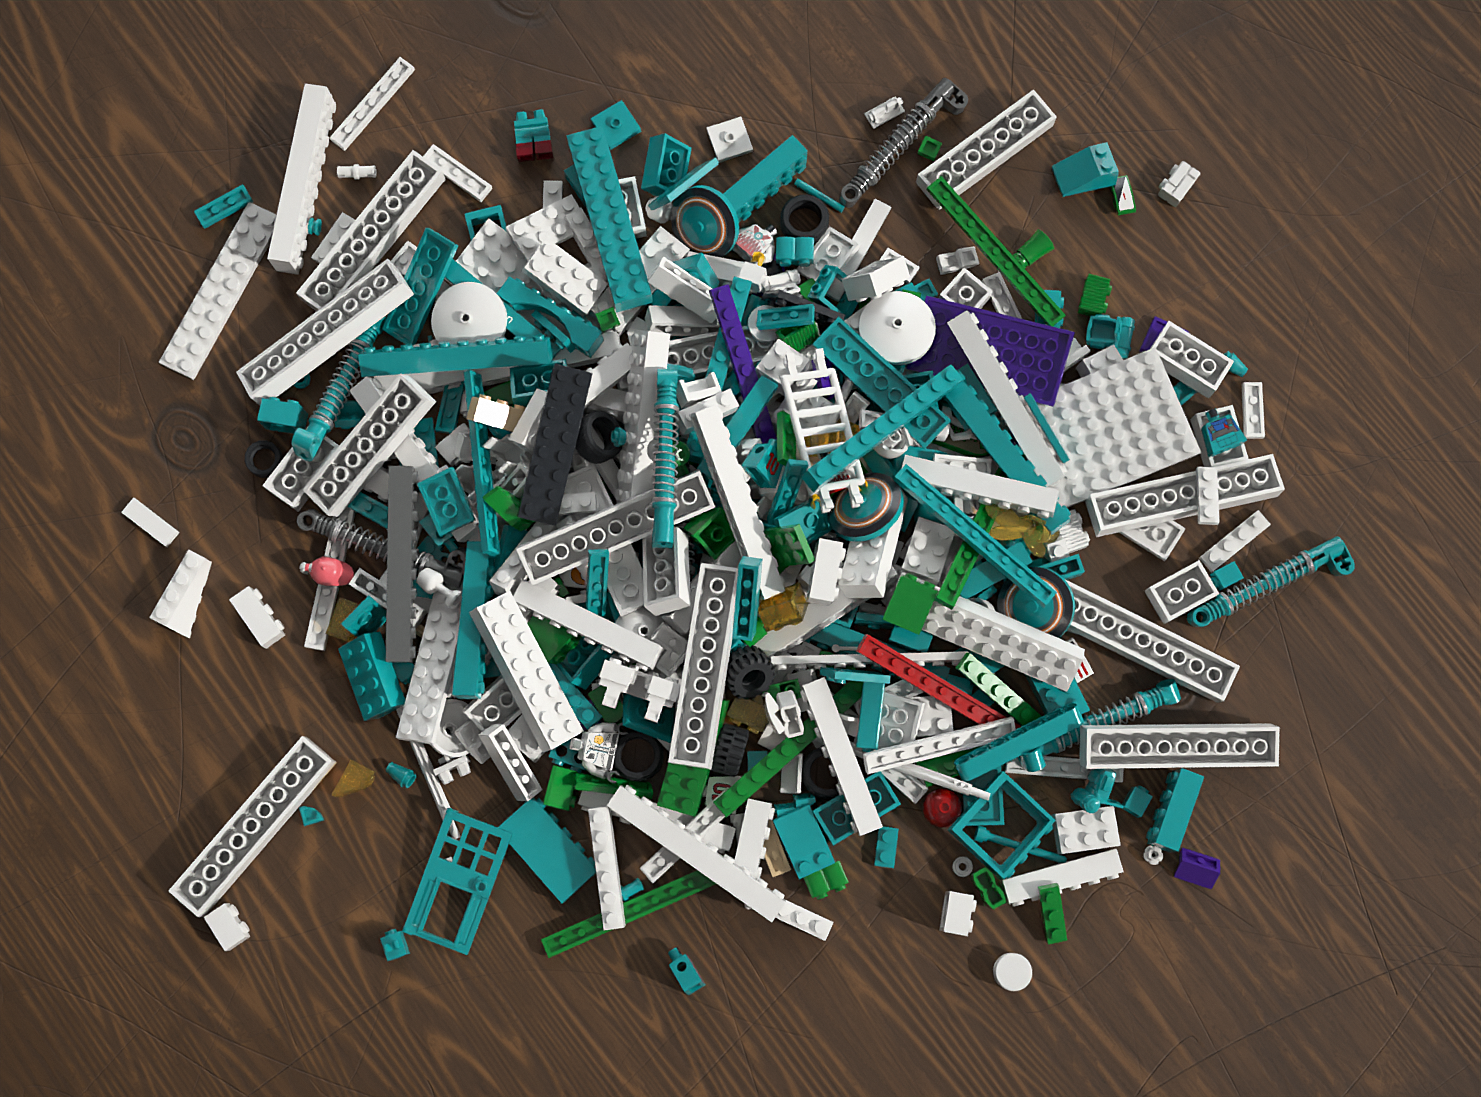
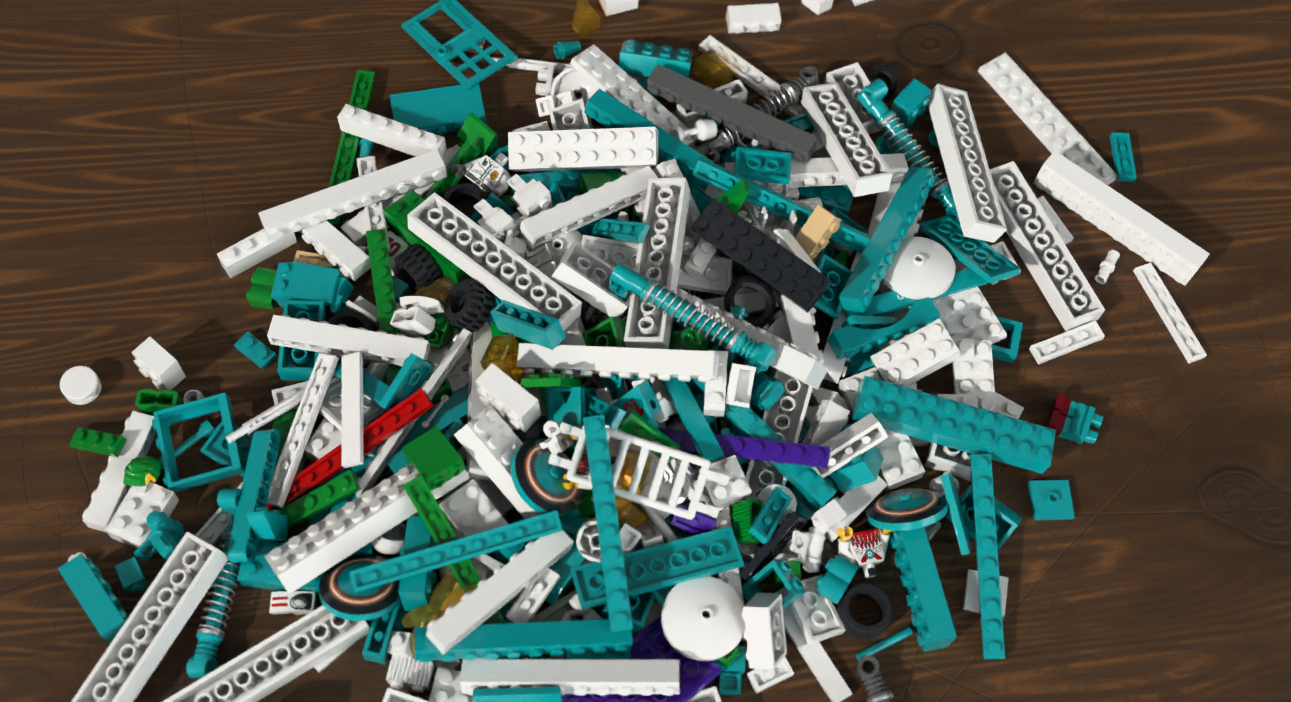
camera: 115 degrees right, 15 degrees down
(314, 226) = (1070, 211): teal bush -> none
(328, 571) = (760, 75): coral hair -> none
(365, 618) = (703, 69): teal tile -> none
(510, 762) = (521, 112): white brick -> none
(608, 319) = (855, 371): green plate -> none
(670, 664) = (518, 245): none -> white panel
(689, 978) = (273, 149): teal torso -> none
(702, 147) = (987, 557): none -> teal plate
(835, 517) = (557, 441): none -> white hips
(903, 706) = (352, 410): none -> white tile
(942, 808) = (249, 406): red cylinder -> none
(1036, 709) = (268, 524): none -> teal slope
(1057, 850) = (141, 471): none -> green hair
(1197, 868) = (36, 594): dark purple panel -> none

